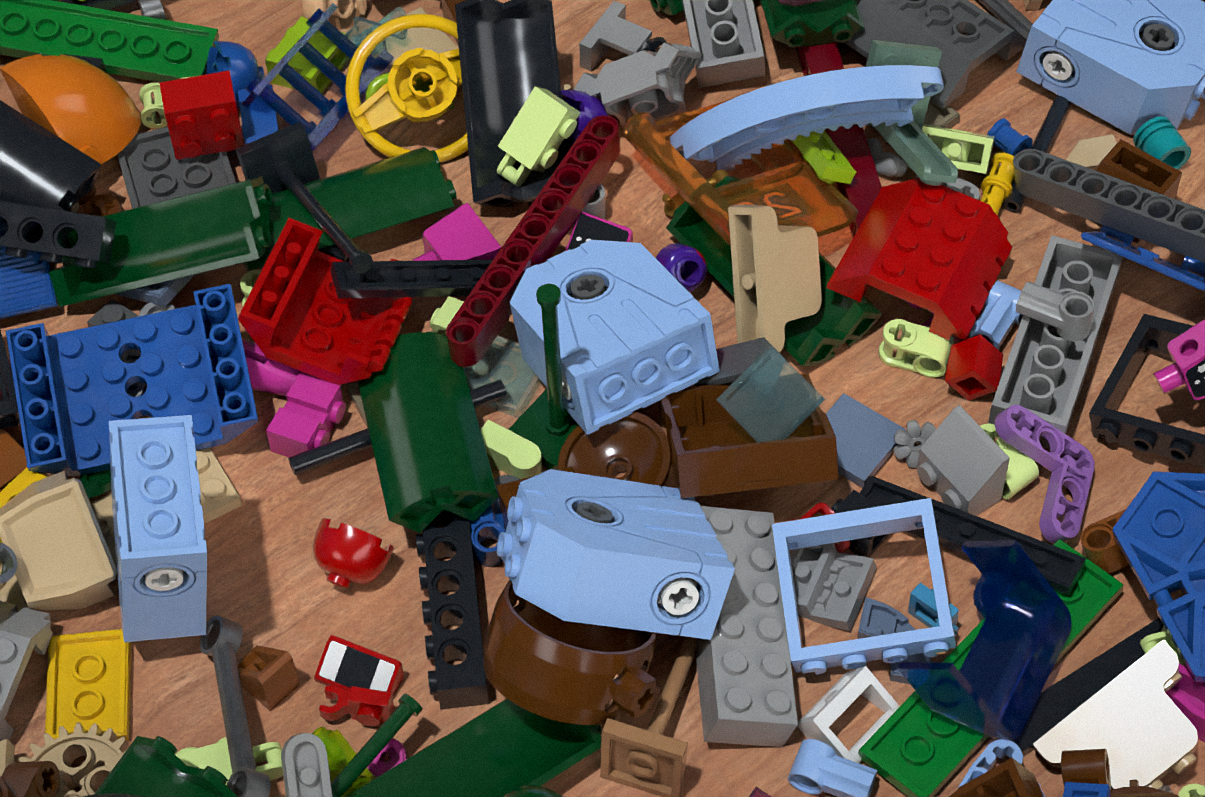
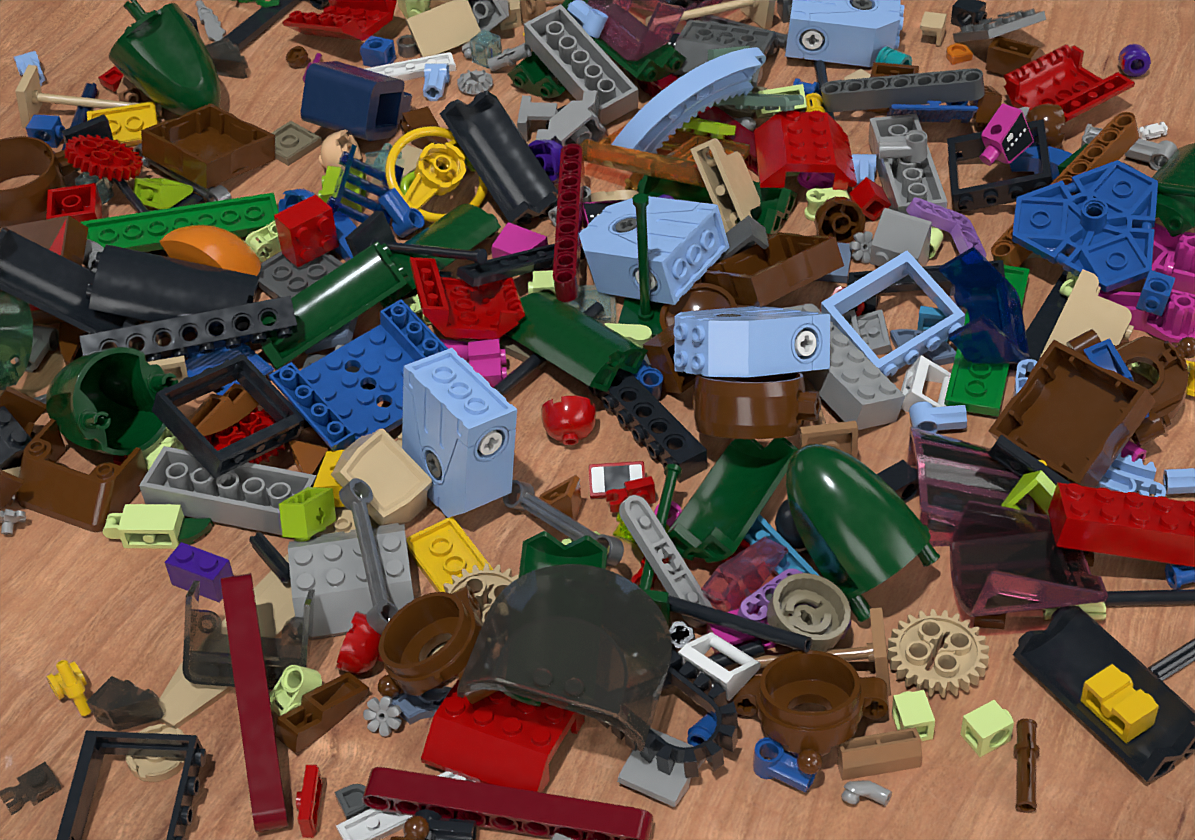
camera: 25 degrees left, 10 degrees down
(341, 128) = (405, 219): none -> blue piece
(536, 135) = (531, 168): yellowish green brick -> none
(631, 218) = (618, 195): none -> tan tile
(770, 398) = (774, 240): clear light blue tile -> none
(905, 387) = (839, 219): none -> reddish brown cylinder

